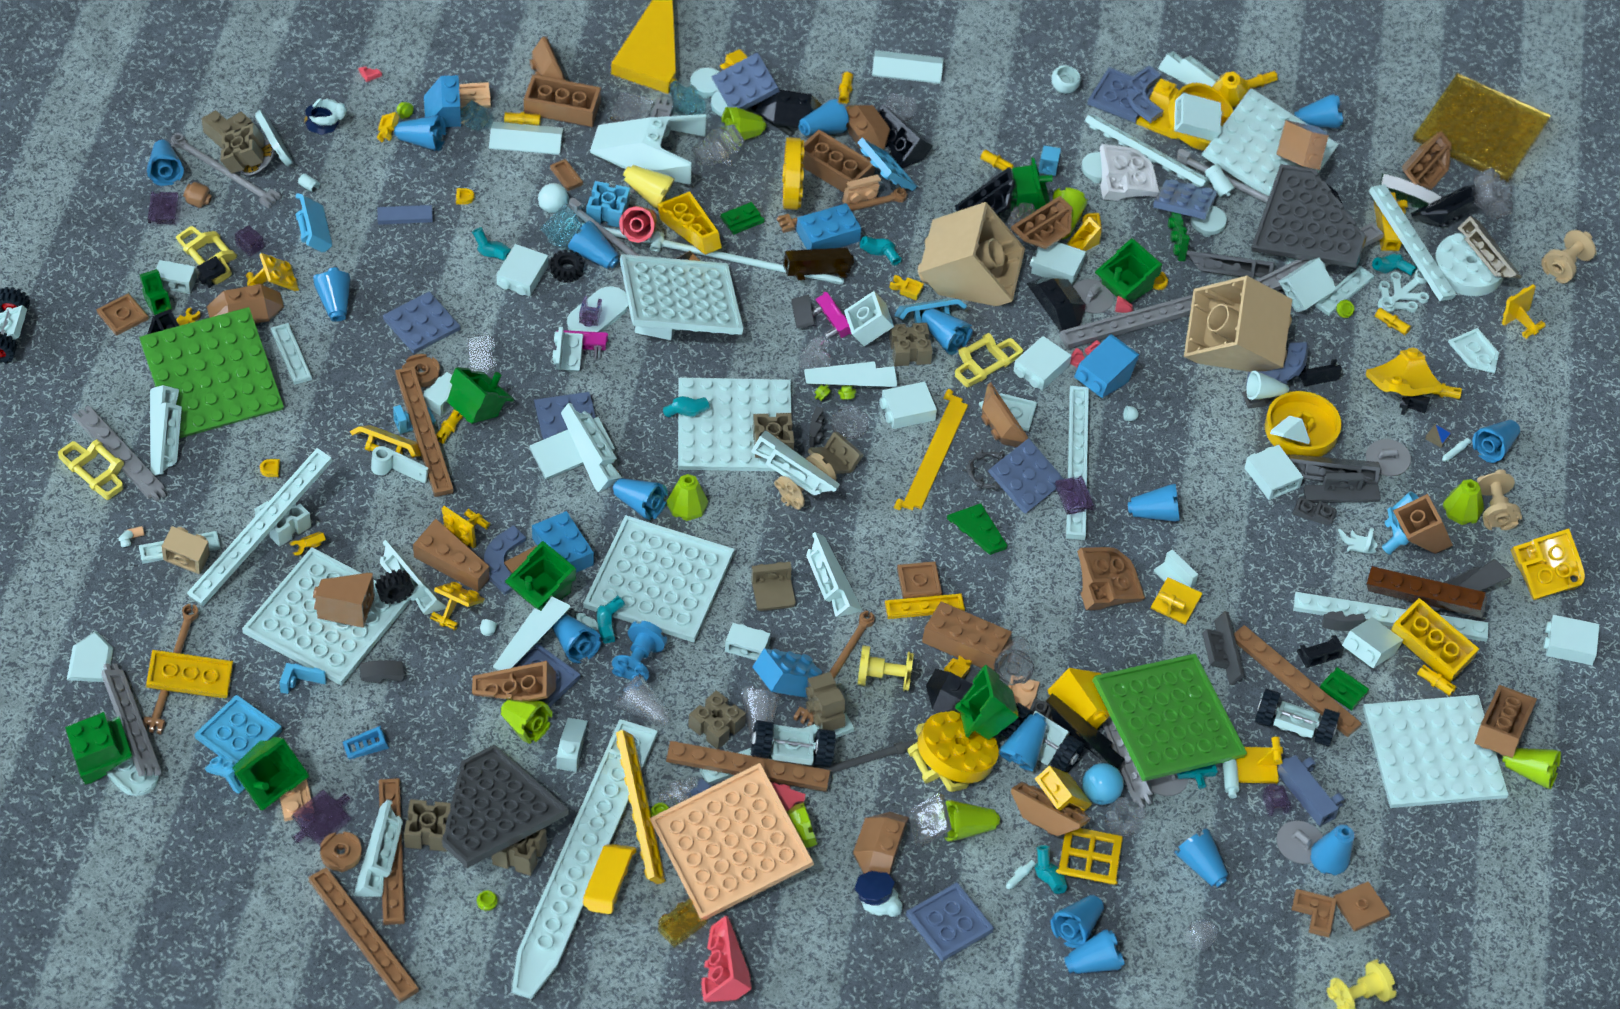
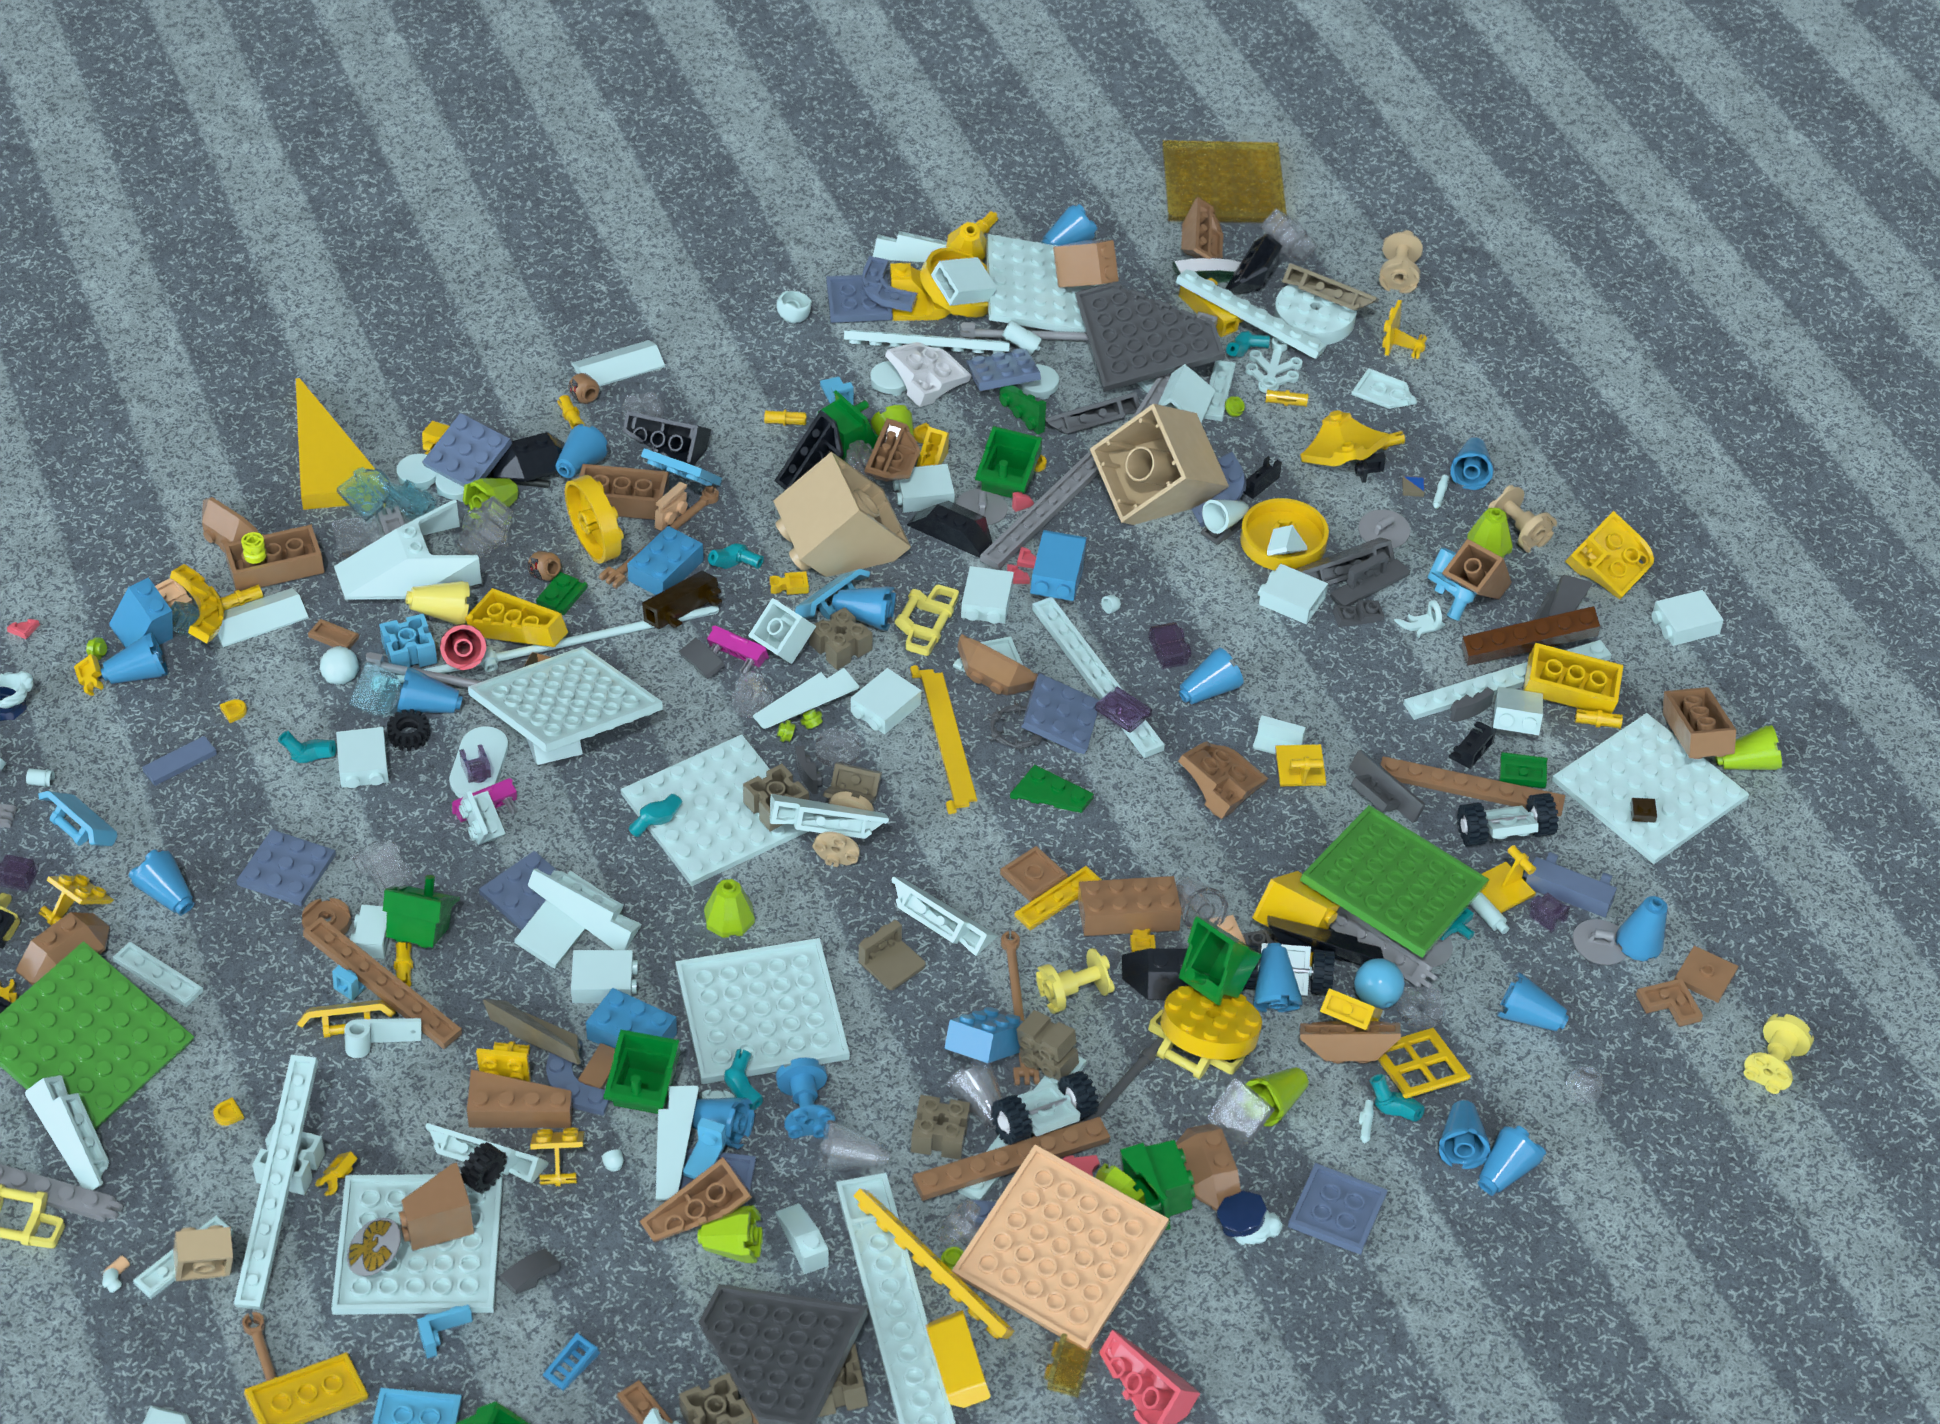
camera: 30 degrees left, 5 degrees down
(291, 602) = (373, 1247): none -> shield
(496, 113) = (208, 601): none -> yellow tile
(498, 513) = (534, 1030): none -> dark tan wedge
(547, 86) = (253, 546): none -> neon yellow wheel
(550, 652) = (708, 1148): none -> medium azure bracket
(570, 496) = (600, 971): none -> light aqua brick
(642, 496) = (677, 932): dark azure cone -> none
(655, 81) = (366, 491): none -> clear light blue slope
(742, 192) = (544, 565): none -> medium nougat head
(746, 641) = (908, 1028): light aqua brick -> none
(835, 833) = (1161, 1176): none -> green piece
(866, 73) = (583, 388): none -> medium nougat head
(867, 124) = (627, 442): medium nougat wedge -> none
(1148, 465) = (1169, 645): none -> clear purple brick
(1410, 763) = (1643, 810): none -> dark brown plate

